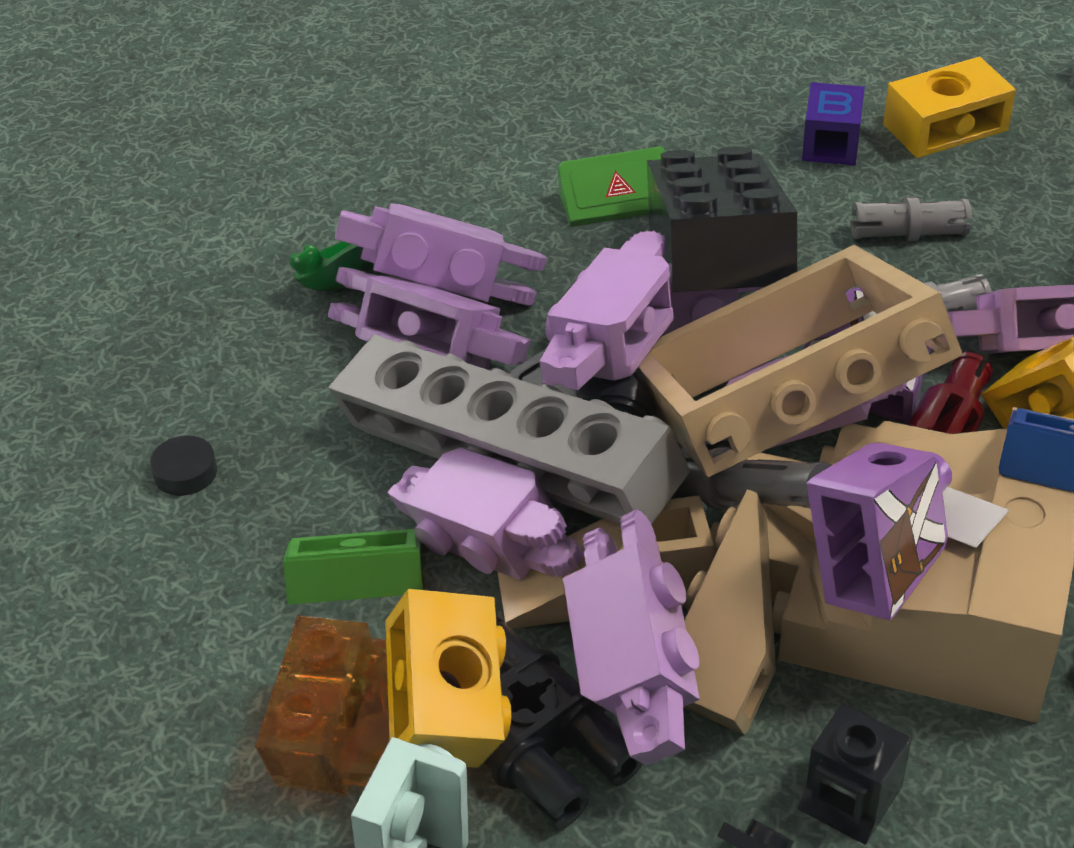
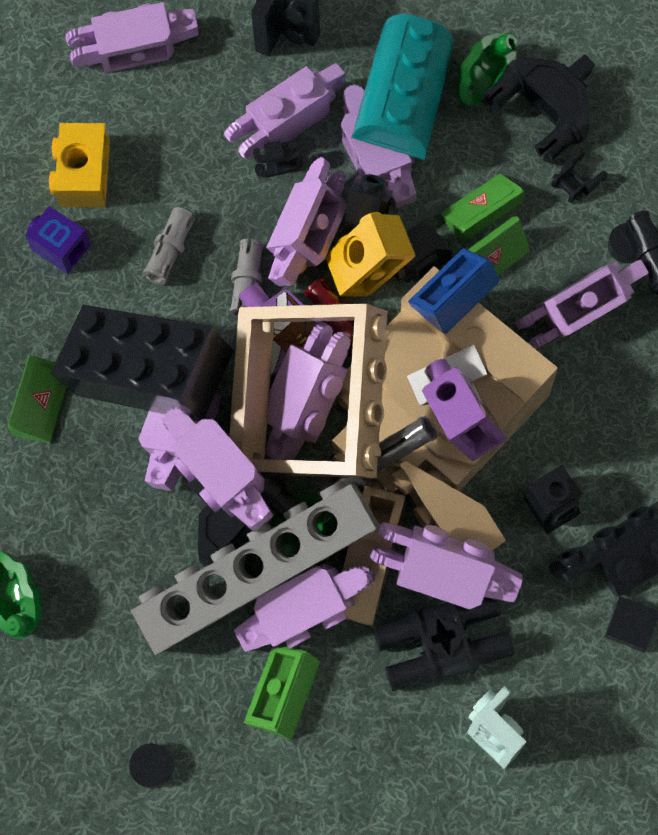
camera: 65 degrees left, 25 degrees up
(327, 708) = (395, 742): clear orange brick -> none
(428, 318) = (115, 574): lavender hinge -> none
(439, 252) = (63, 538): lavender hinge -> none
(460, 637) = (412, 675): yellow brick -> none

